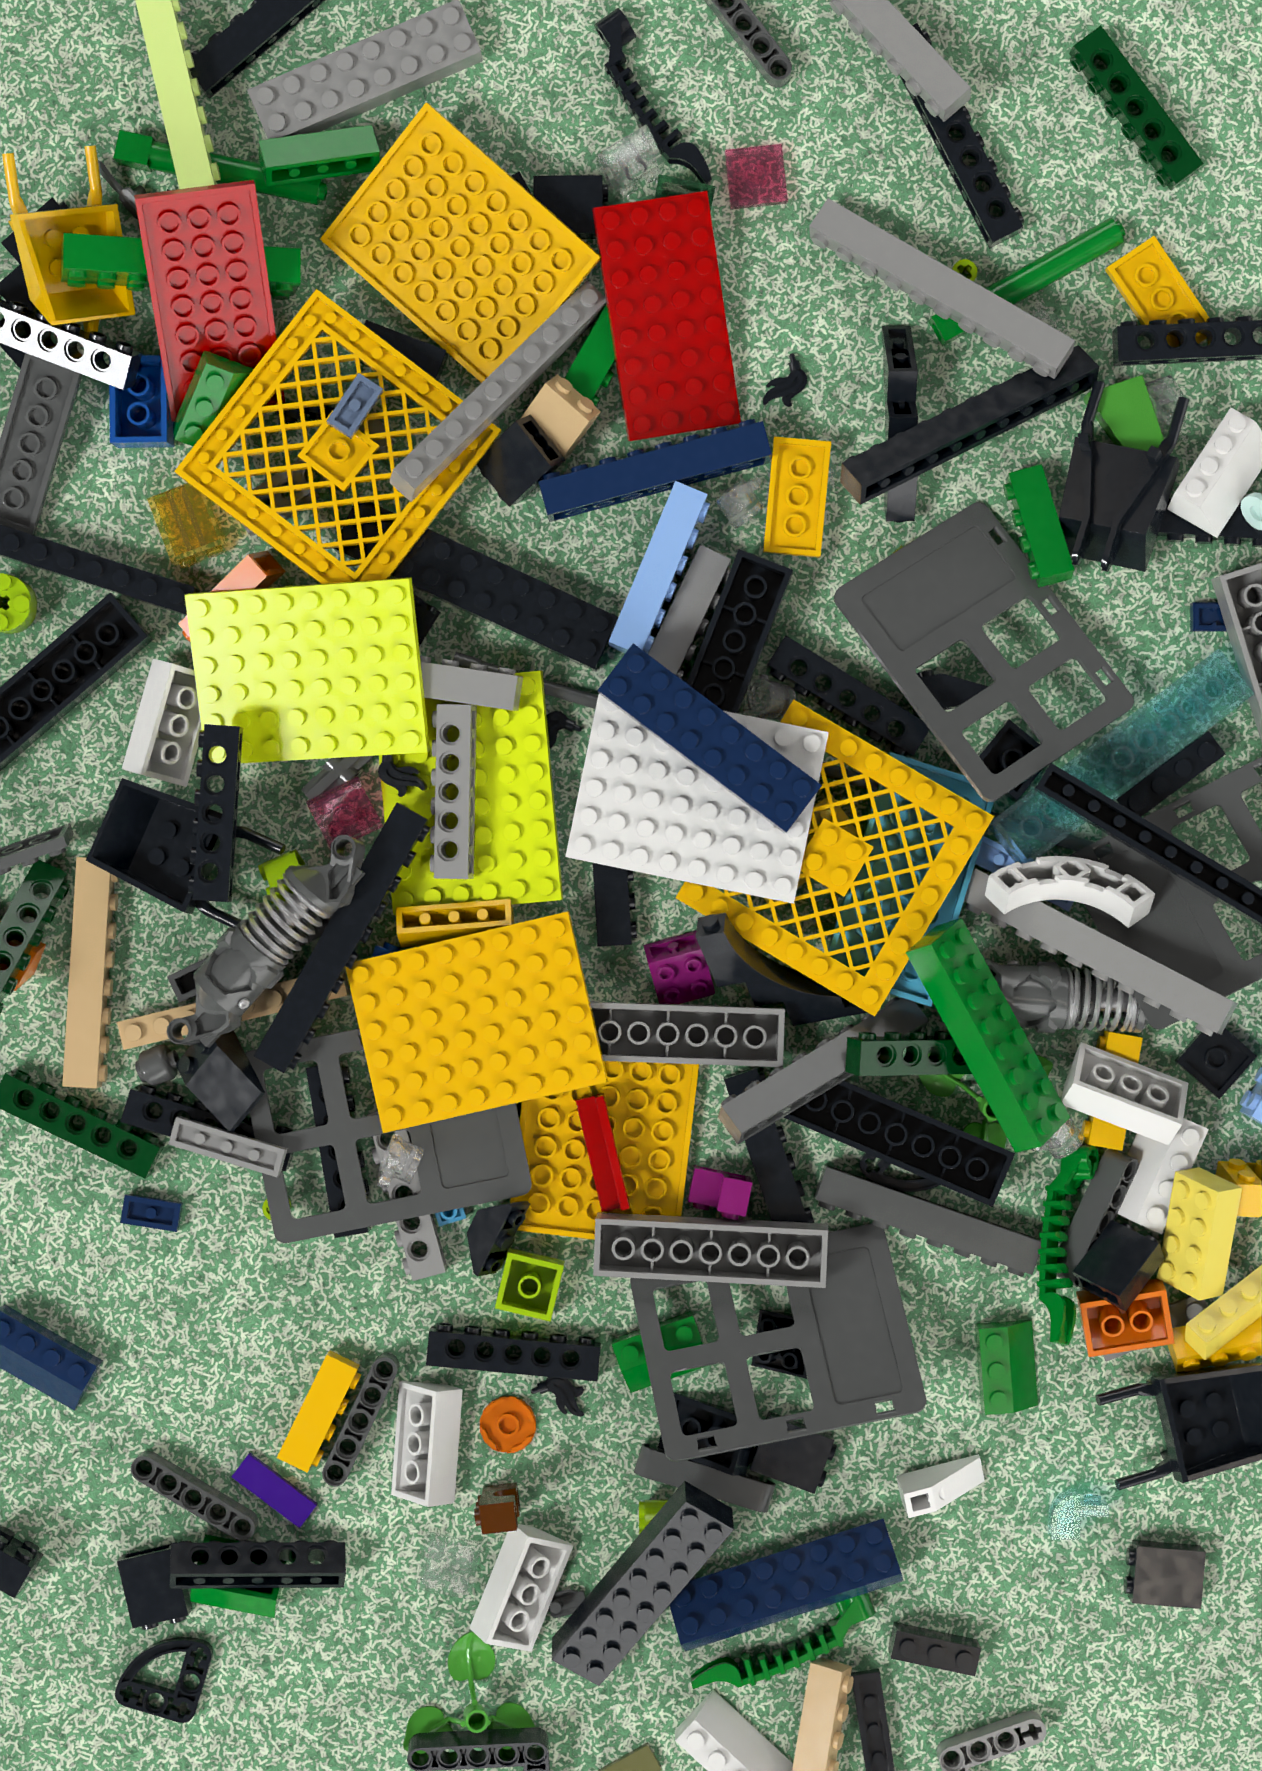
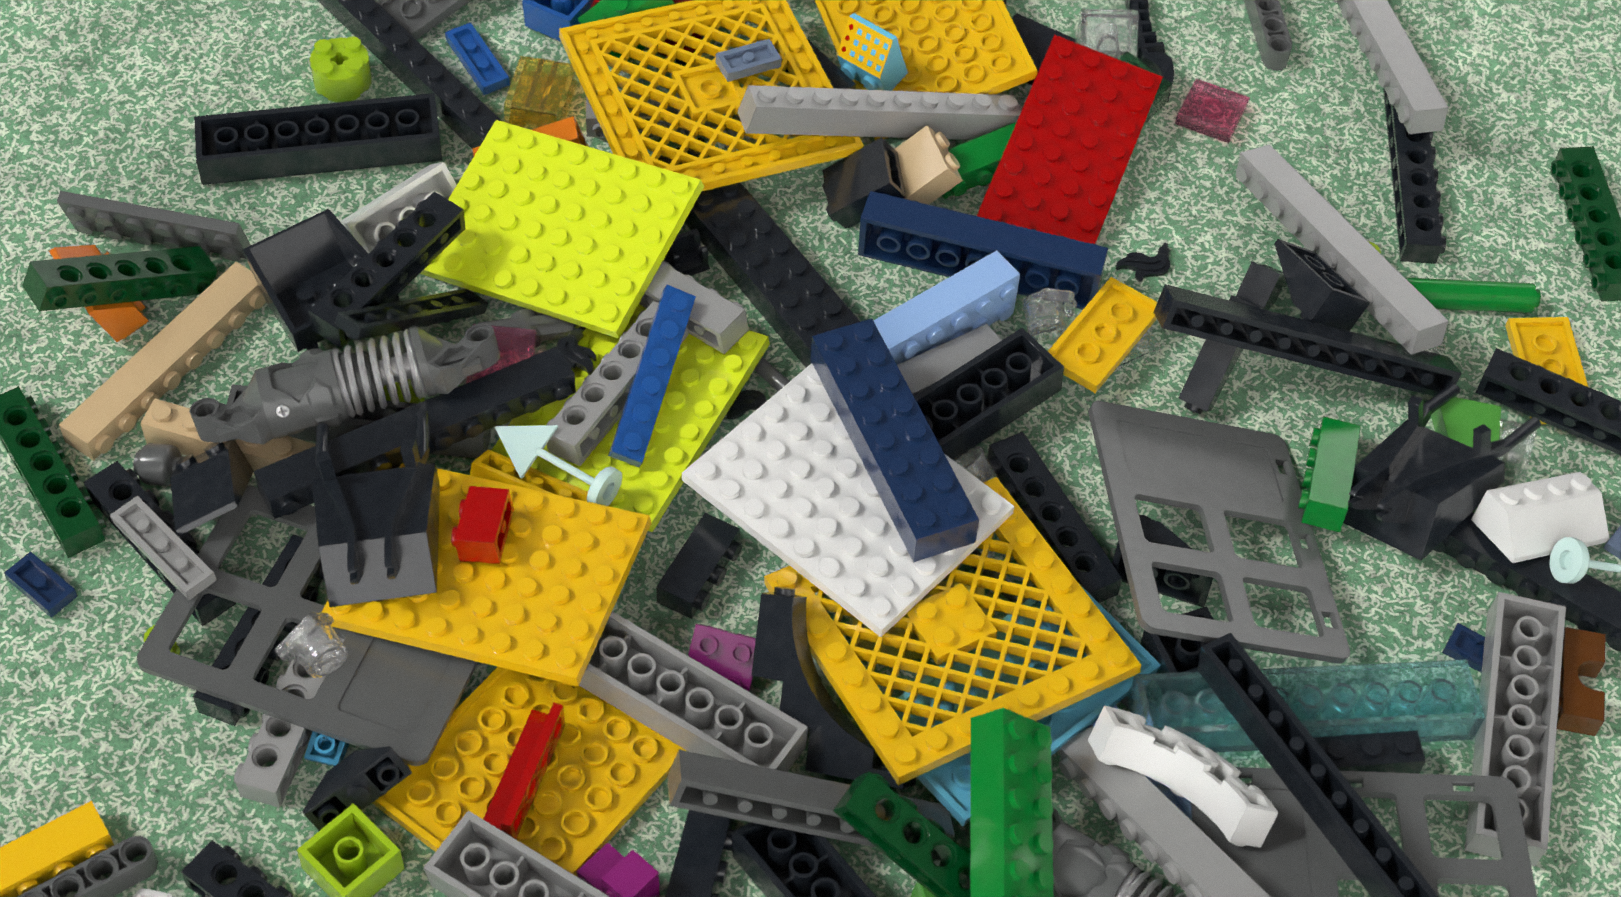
camera: 30 degrees right, 35 degrees down
(105, 514) = (477, 58): none -> blue plate
(259, 834) = (403, 314): none -> black plate
(377, 1045) = (378, 525): none -> black piece
(429, 898) = (527, 443): none -> light aqua piece
(446, 322) = (871, 55): none -> slope
(455, 1000) = (483, 524): none -> red brick
(484, 777) = (652, 376): none -> blue plate
(948, 353) = (1318, 288): none -> black slope

